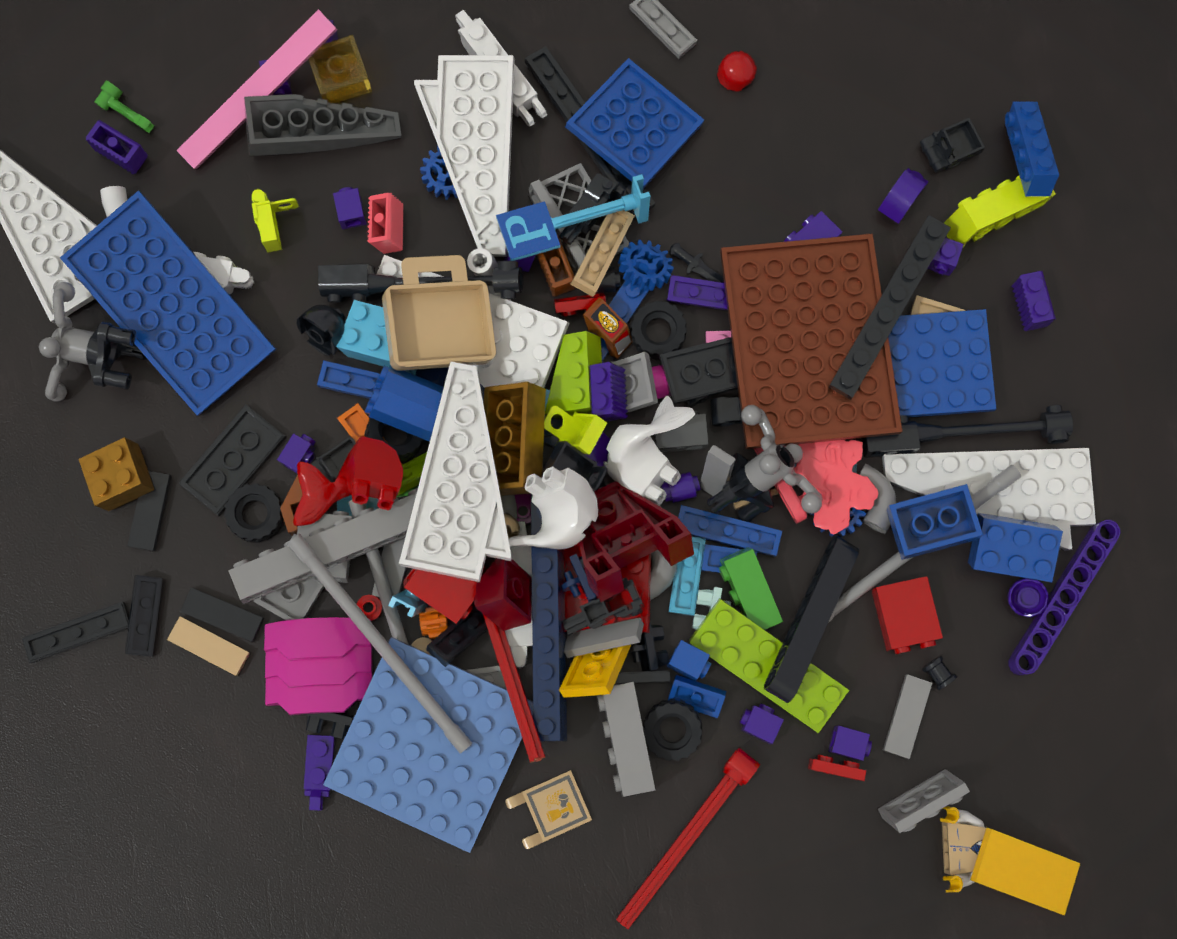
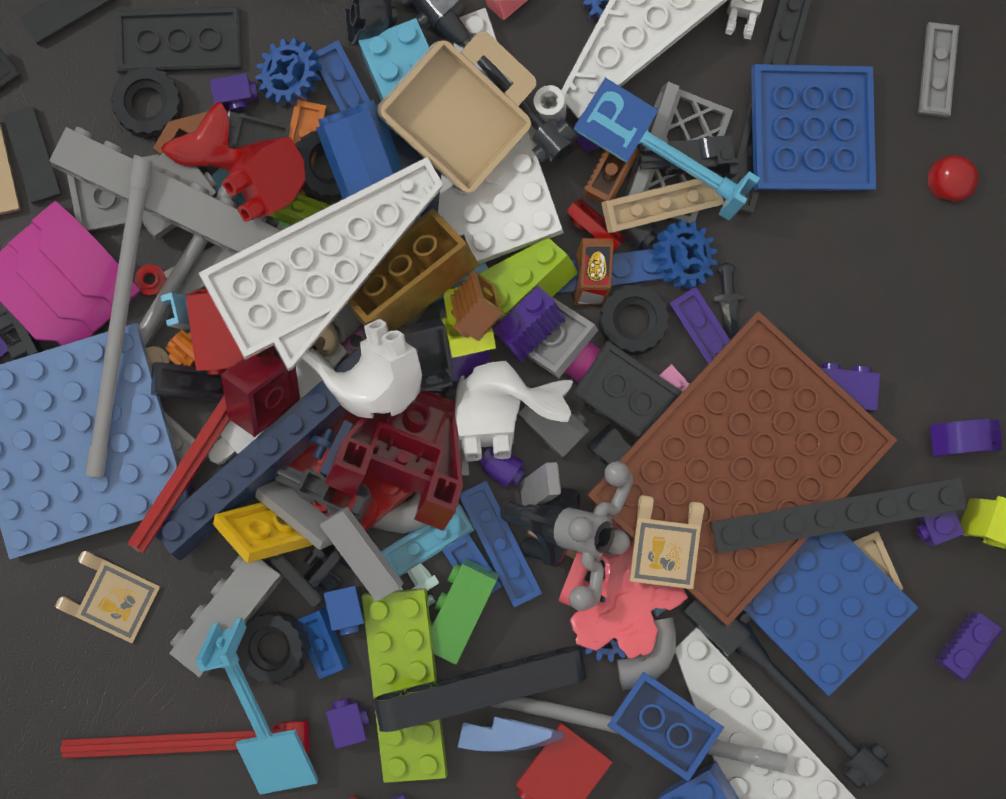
camera: 40 degrees right, 5 degrees up
(327, 404) = (287, 71): none -> blue gear
(571, 412) = (475, 306): none -> dark orange brick
(665, 617) = (361, 554): none -> light grey tile
(743, 792) = (272, 759): none -> medium azure piece
(822, 428) = (665, 550): none -> tan flag
(855, 628) = (506, 736): none -> medium blue slope

